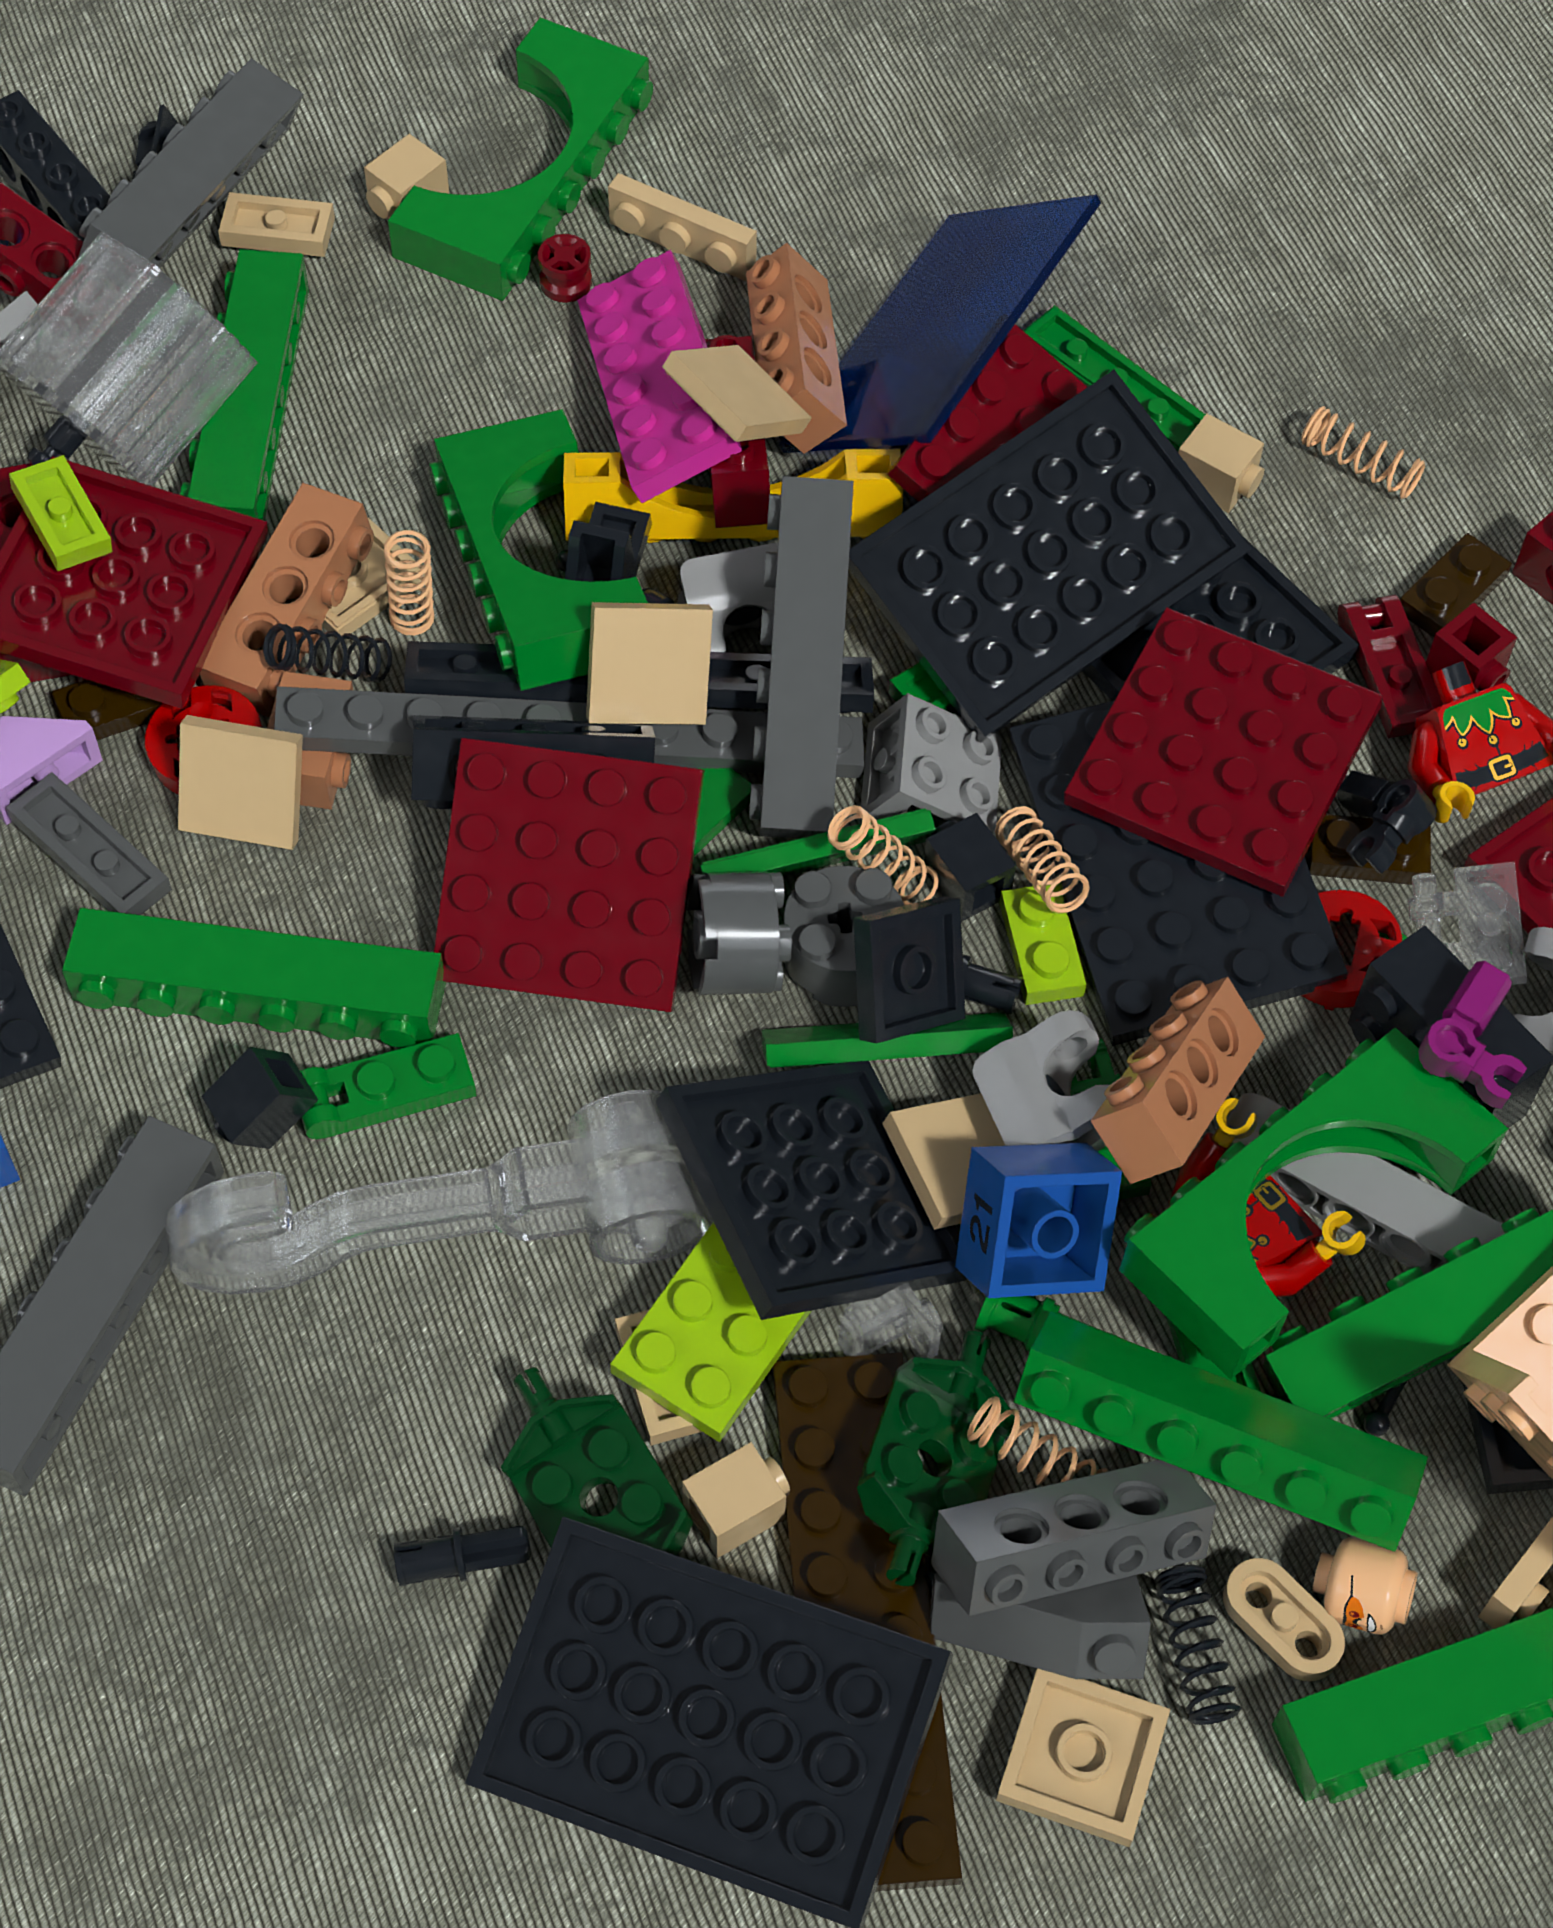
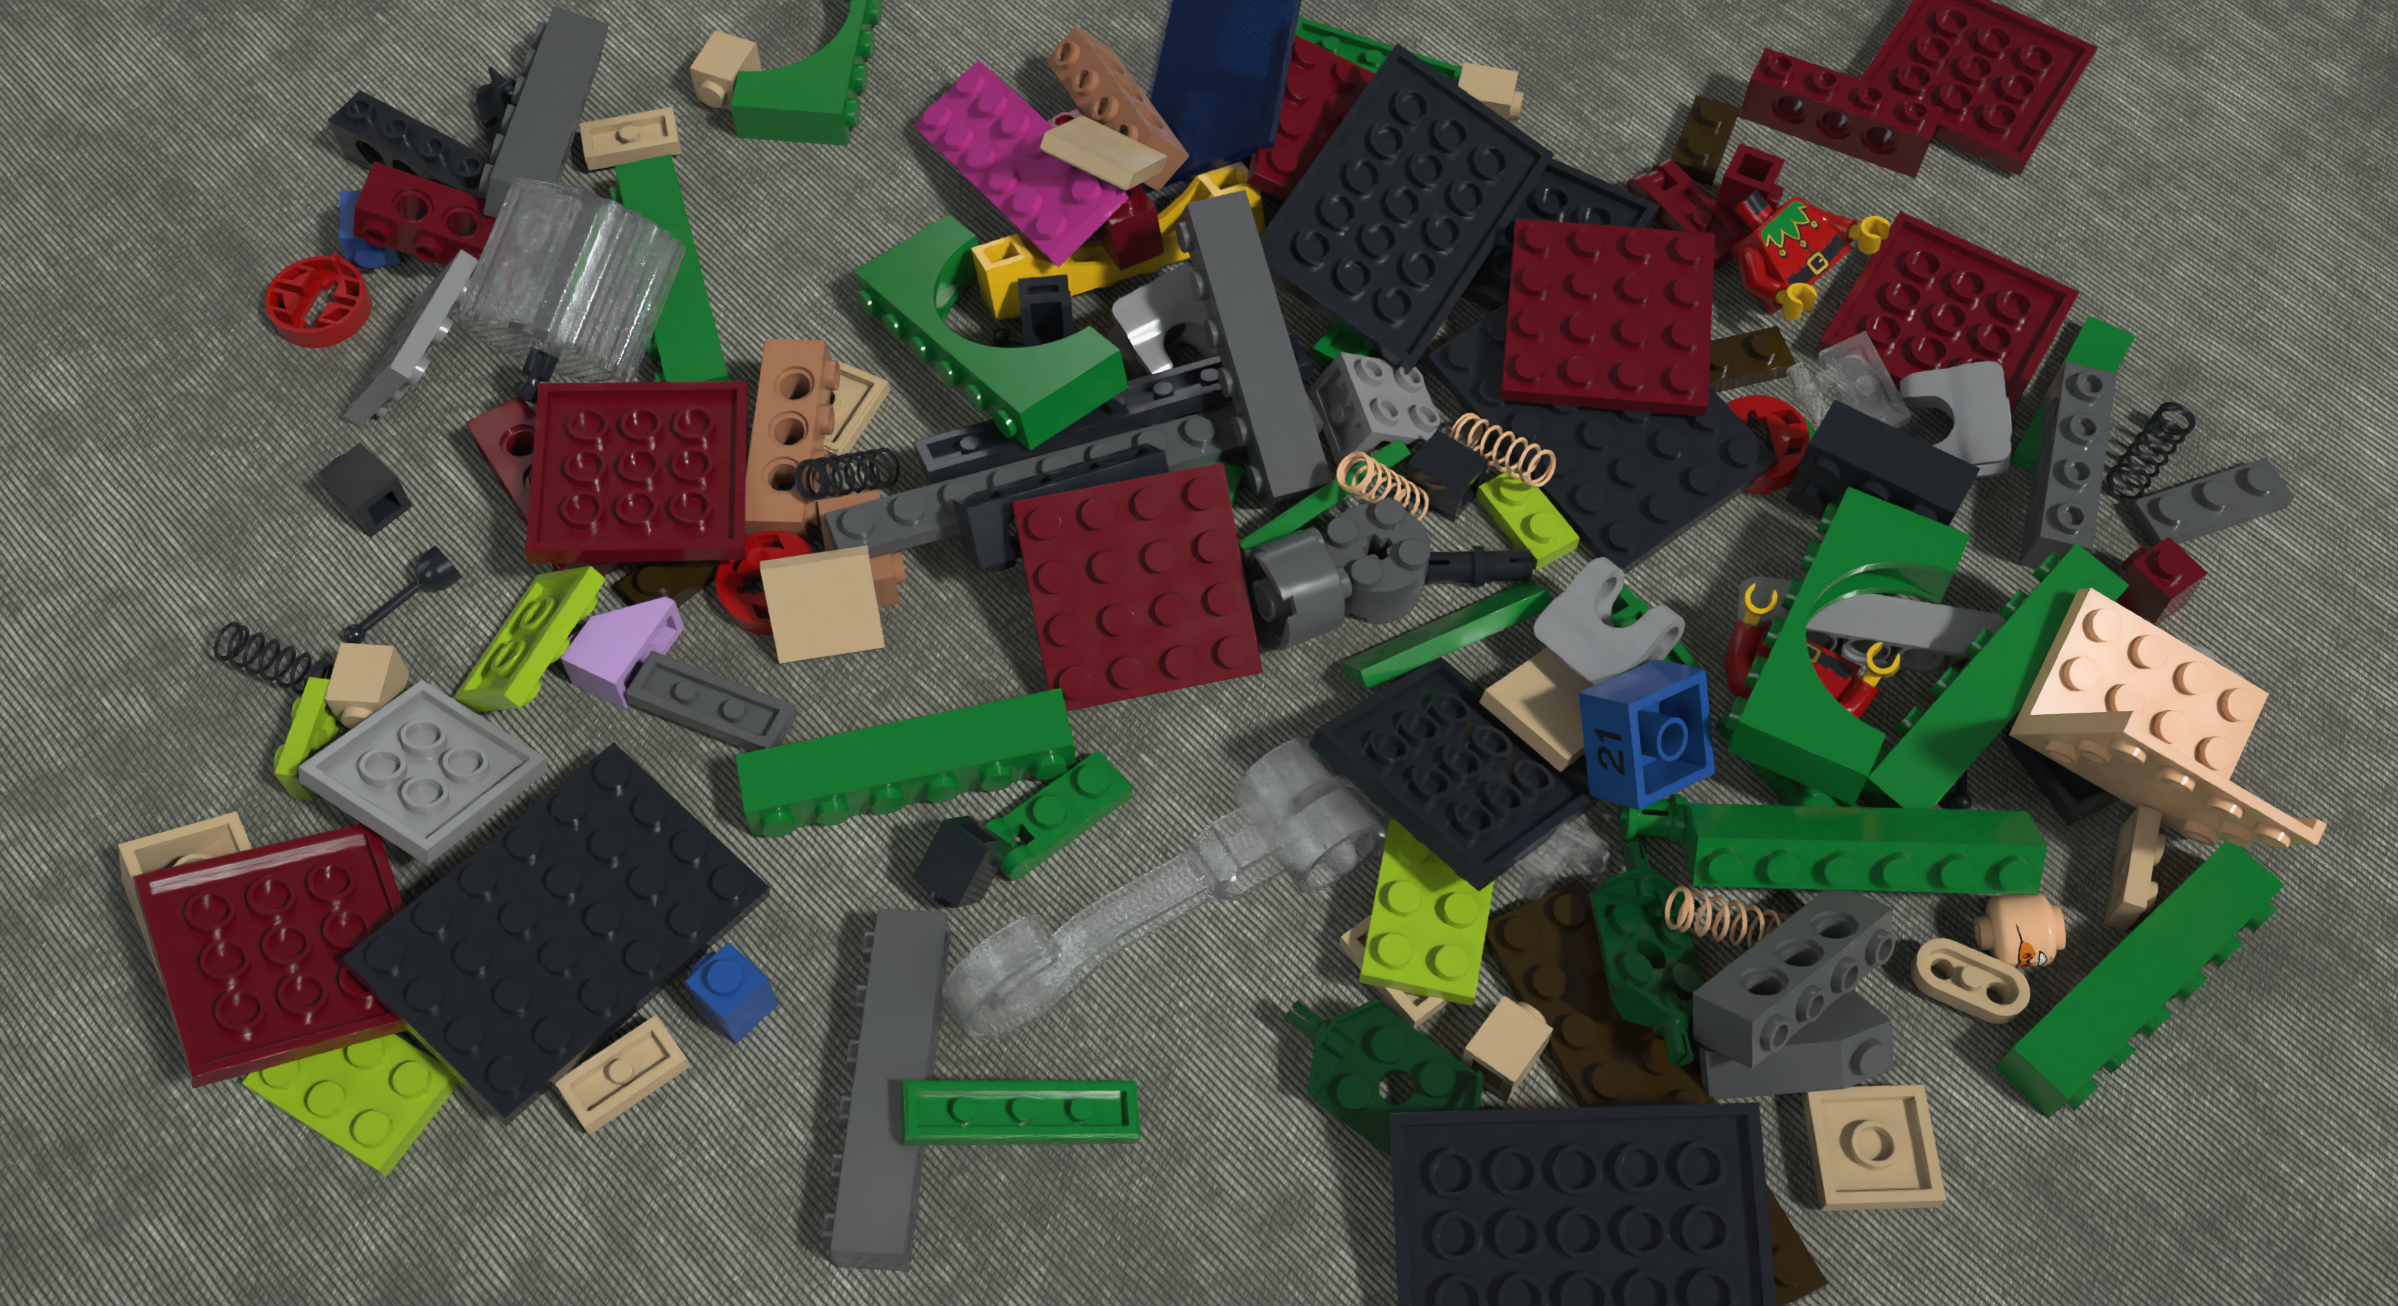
camera: 20 degrees left, 0 degrees up
(60, 513) = (573, 427): lime plate -> none
(198, 1376) = (1019, 1112): none -> green tile
(397, 601) = (878, 410): light nougat piece -> none
(459, 1554) = (1304, 1178): black axle -> none
(565, 268) = (890, 102): dark red wheel -> none
(648, 663) = (1131, 393): tan tile -> none
(681, 226) = (972, 40): tan plate -> none
(909, 969) = (1450, 569): black plate -> none
(1178, 1079) = (1705, 585): nougat brick -> none
(1181, 1580) = (1880, 978): black piece -> none
(1318, 429) = (1545, 51): light nougat piece -> none
(1396, 809) = (1761, 324): black bar -> none
(1451, 1043) = (1906, 483): magenta bar -> none

